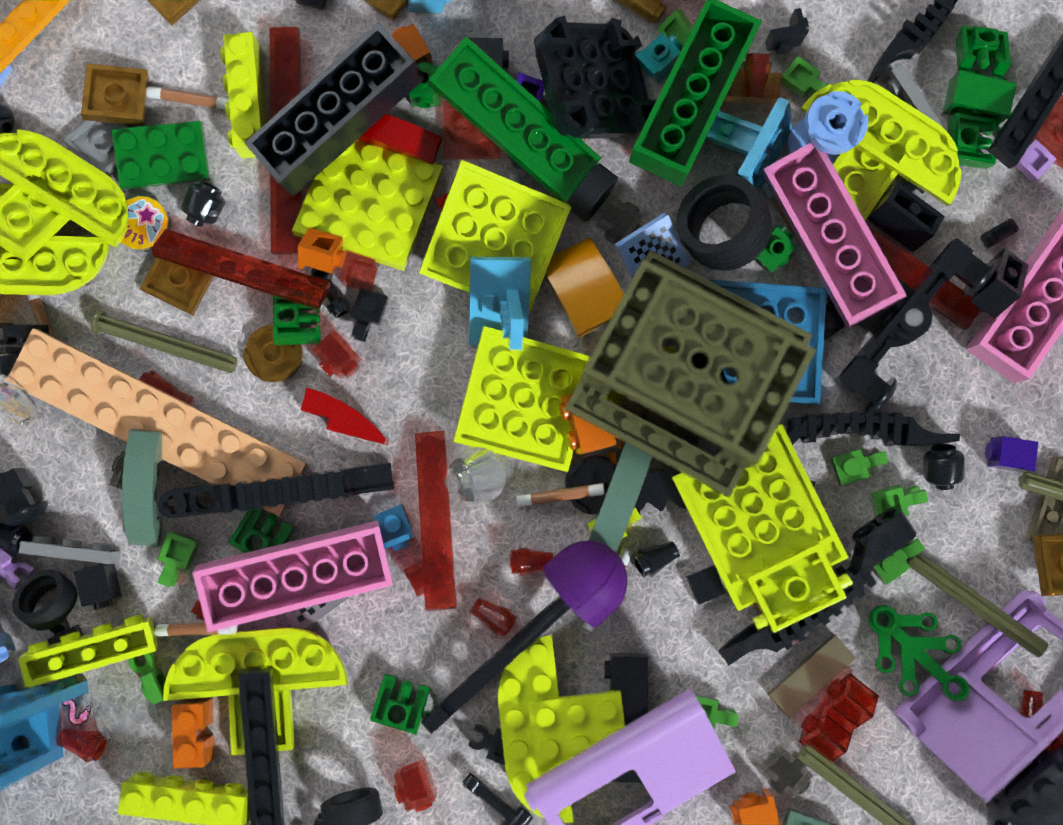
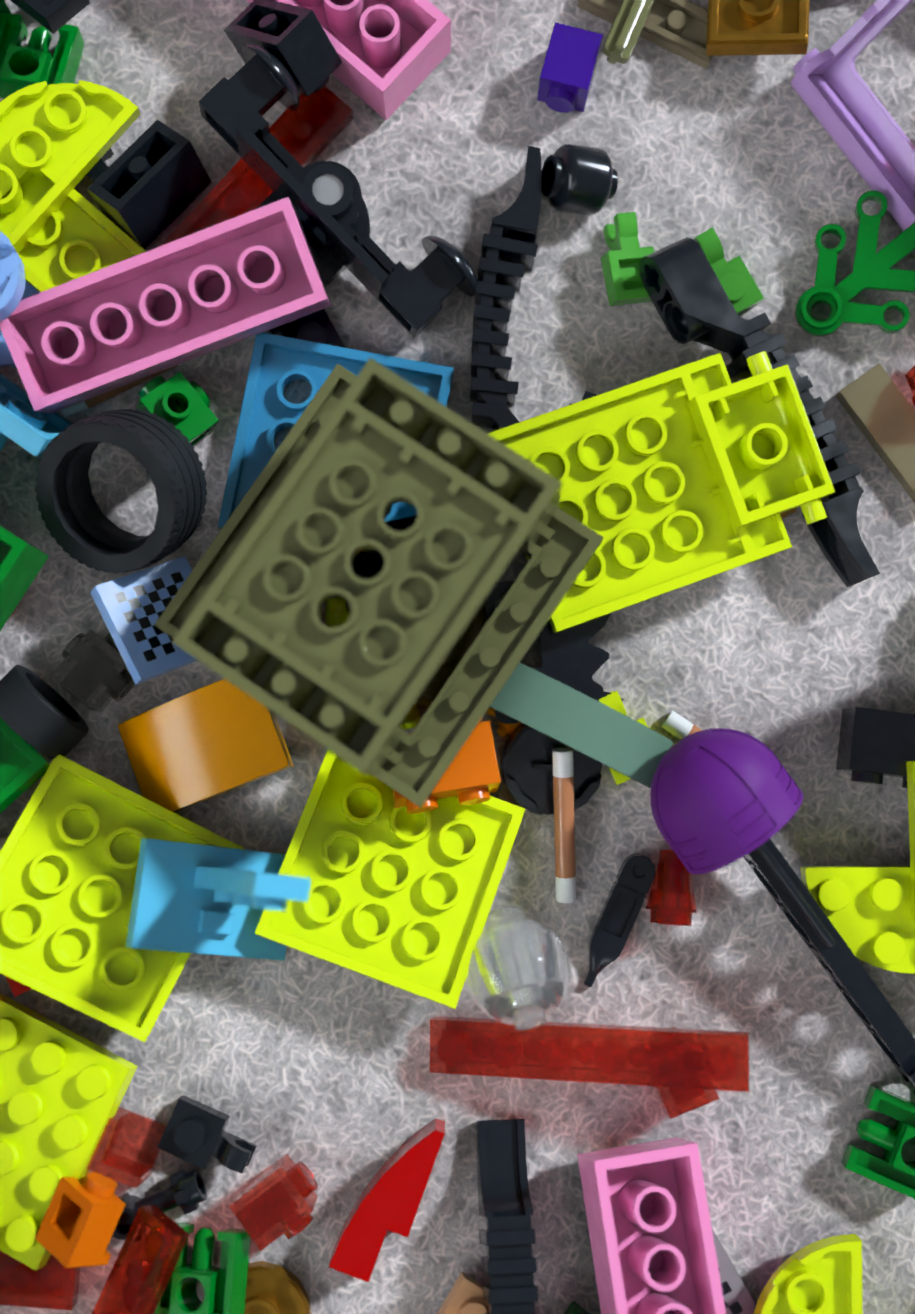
camera: 85 degrees left, 0 degrees up
(395, 528) = (593, 1123): dark azure bracket -> none
(494, 617) = (761, 963): clear red cone -> none
(513, 532) = (619, 913): none -> black piece
(655, 558) = (686, 675): black cone -> none
(705, 584) = (737, 594): black tile -> none
(854, 467) = (562, 326): bright green plate -> none
(979, 605) = (813, 153): olive axle -> none
(999, 233) = (196, 38): black piece -> none

